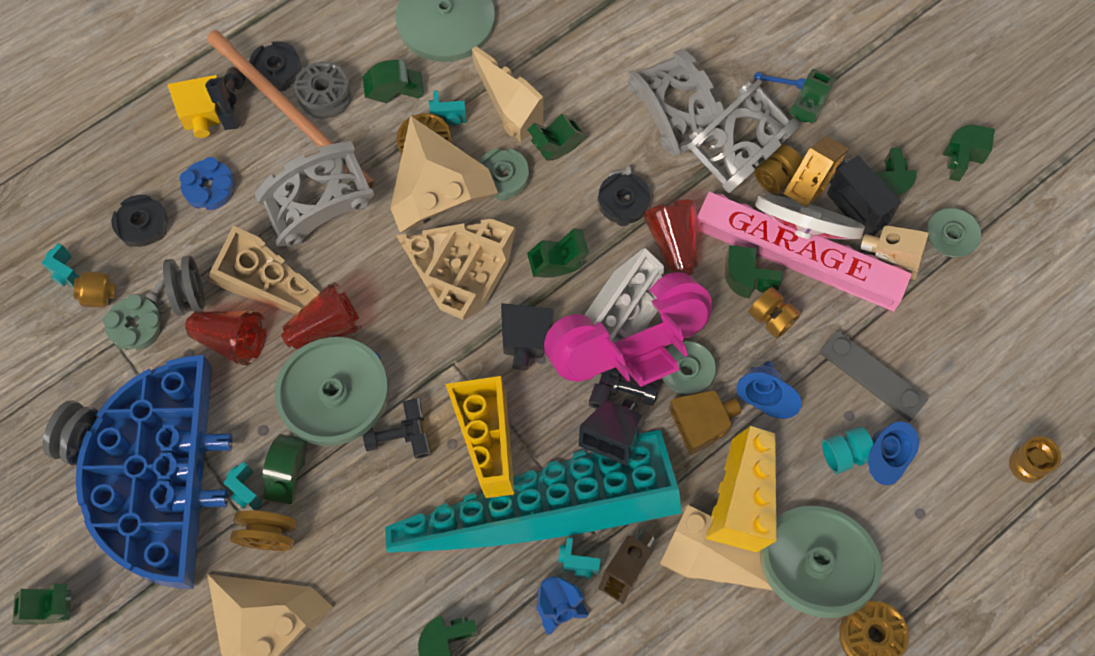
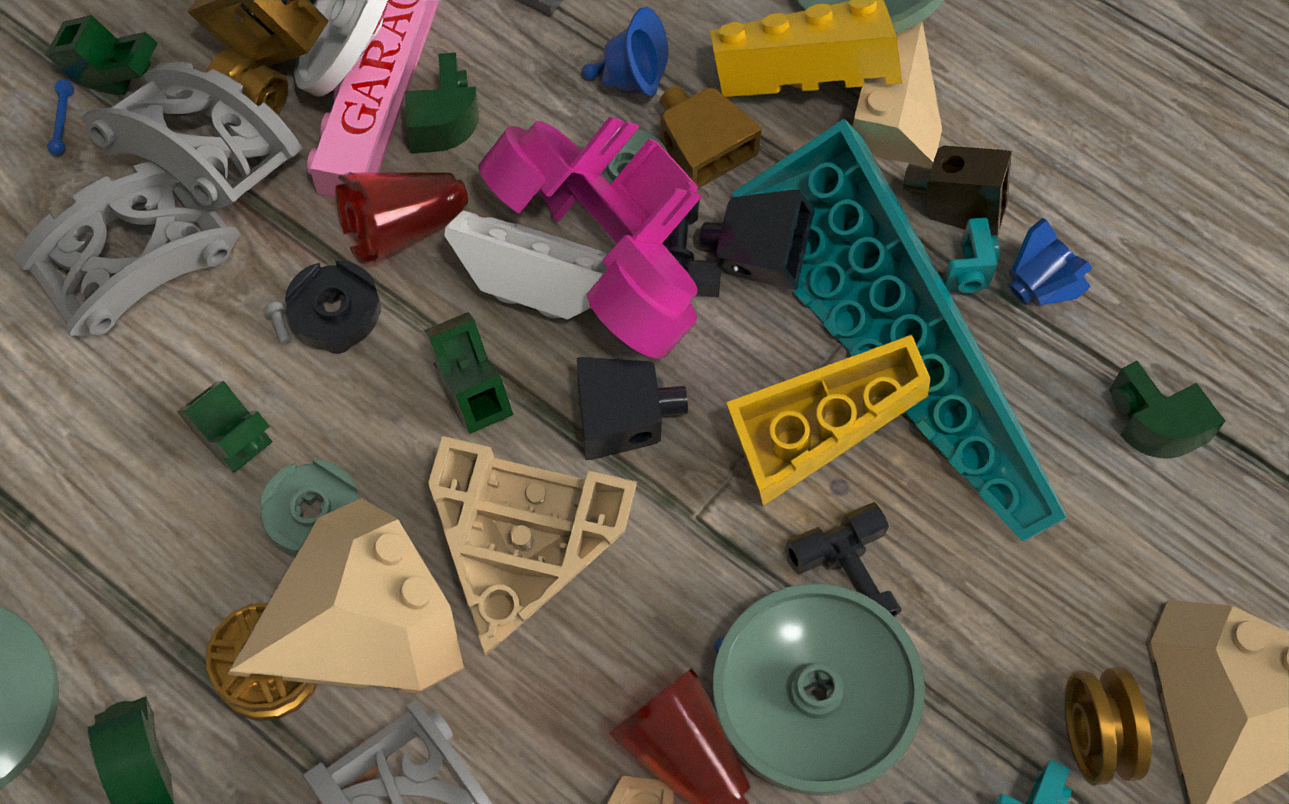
camera: 105 degrees left, 5 degrees down
(282, 467) = (975, 732): dark green brick -> none
(451, 112) = (192, 627): teal bracket -> none
(513, 98) = (161, 512): tan wedge -> none
(767, 306) = (507, 63): pearl gold wheel -> none

